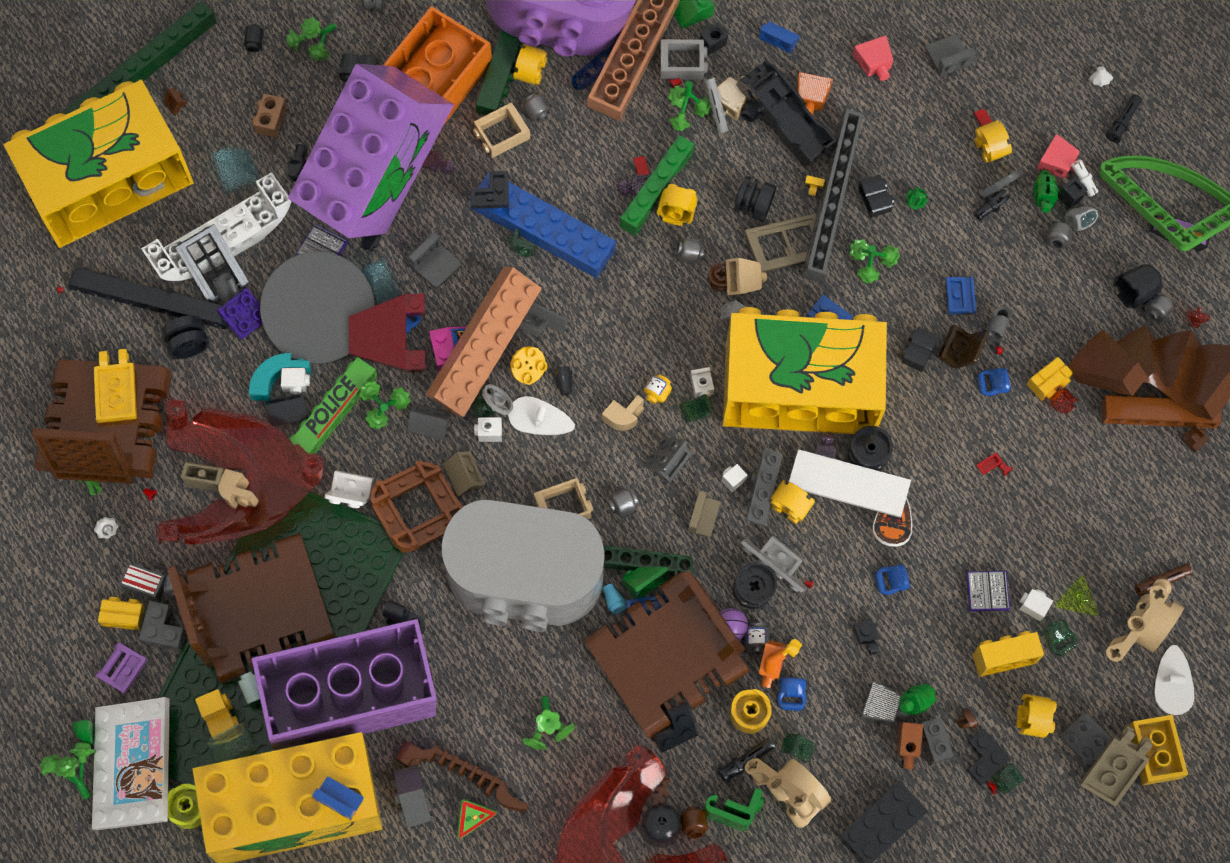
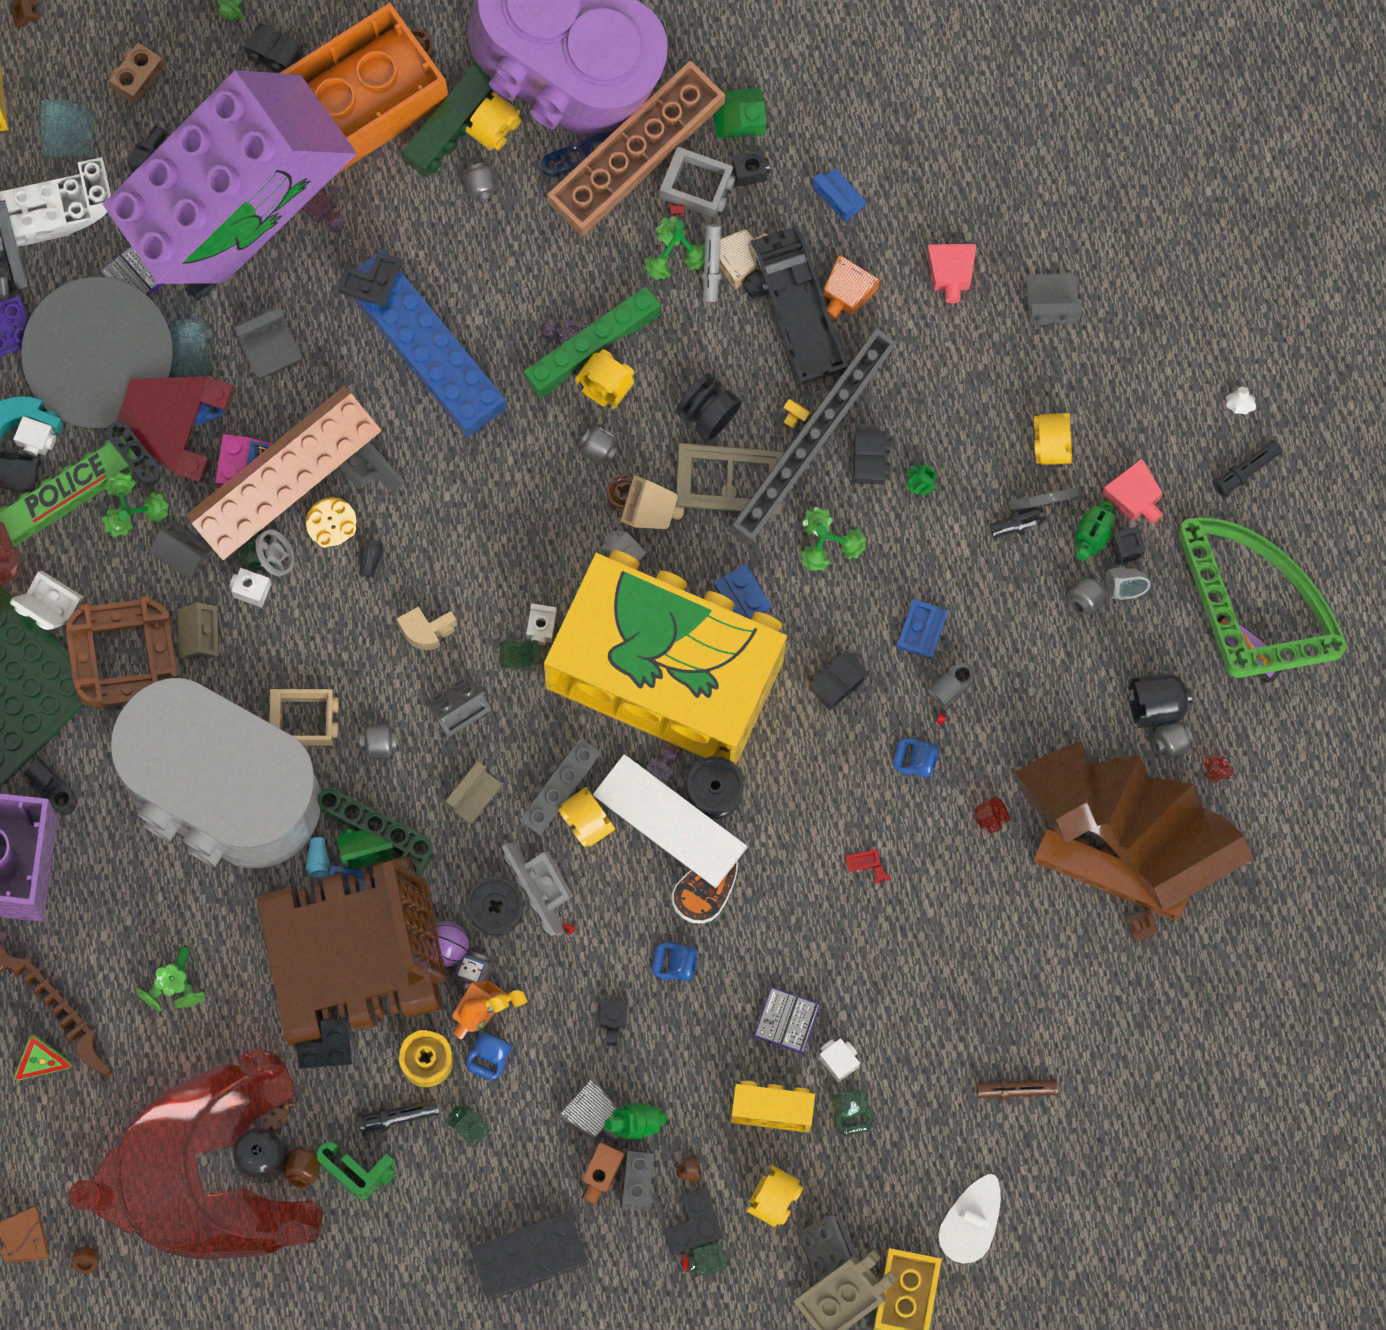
camera: 20 degrees right, 5 degrees up
(386, 368) = (128, 435): none -> black beam
(489, 120) = (420, 177): tan window -> none
(521, 247) = (387, 366): clear green bracket -> none
(539, 417) = (320, 593): white shield -> none
(641, 166) = (585, 309): red piece -> none
(657, 389) = (481, 611): yellow head -> none
(734, 477) = (530, 760): white plate -> none
(793, 786) = (434, 1170): tan piece -> none
(962, 348) = (891, 697): dark brown bracket -> none
(982, 117) = (1060, 401): red piece -> none
(1049, 379) = (988, 780): yellow brick -> none
(1078, 598) = (899, 1072): clear neon green piece -> none
(1084, 177) = (1153, 531): white pin -> none
(1151, 622) = (963, 1137): tan piece -> none

